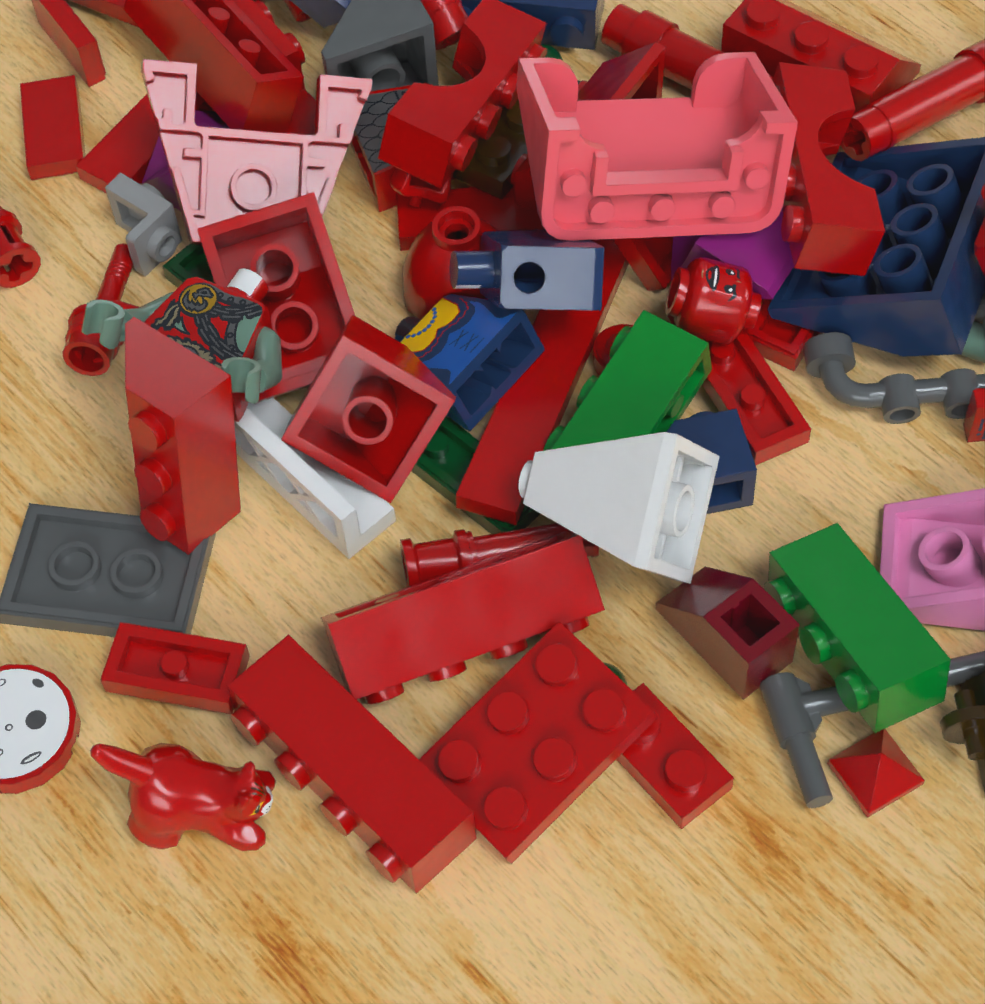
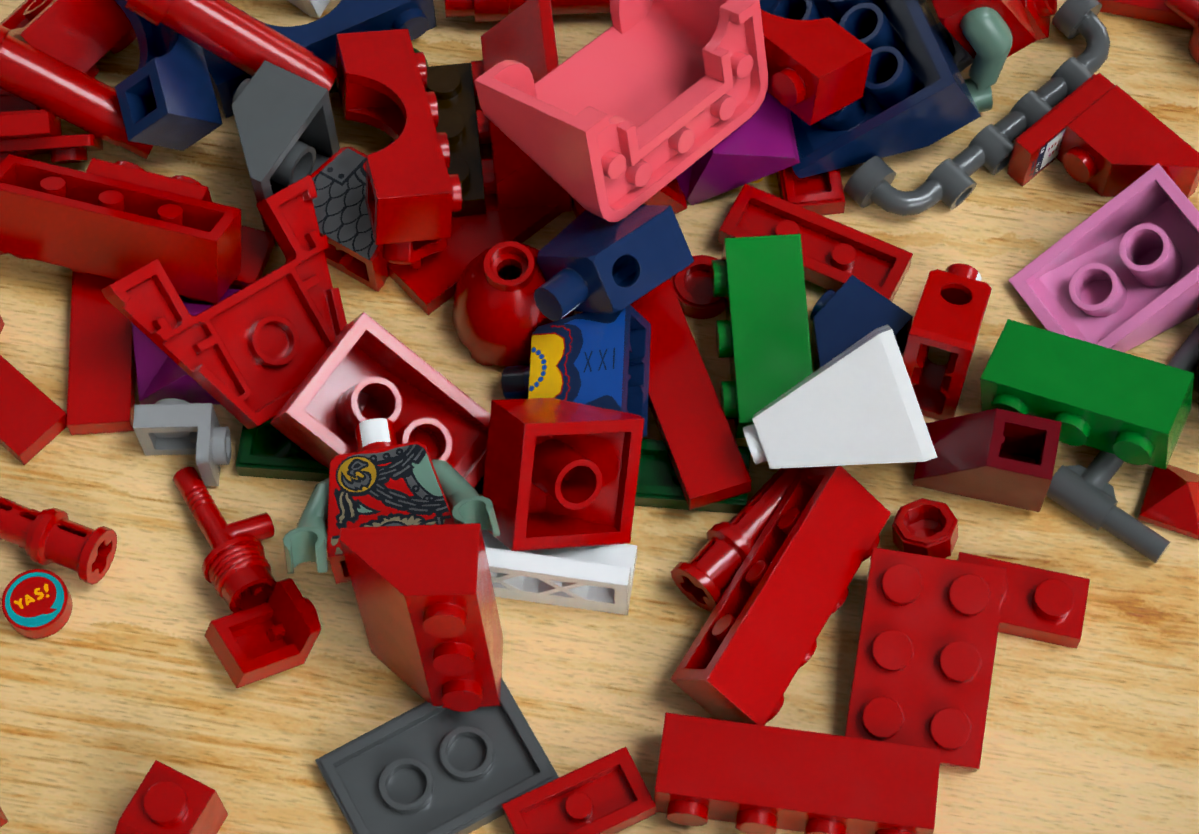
camera: 40 degrees left, 5 degrees up
(70, 394) = (266, 636): none -> red bracket
(630, 647) = (925, 528): none -> red tile
(713, 300) = (758, 194): red head -> none
(769, 504) = (949, 320): none -> red torso

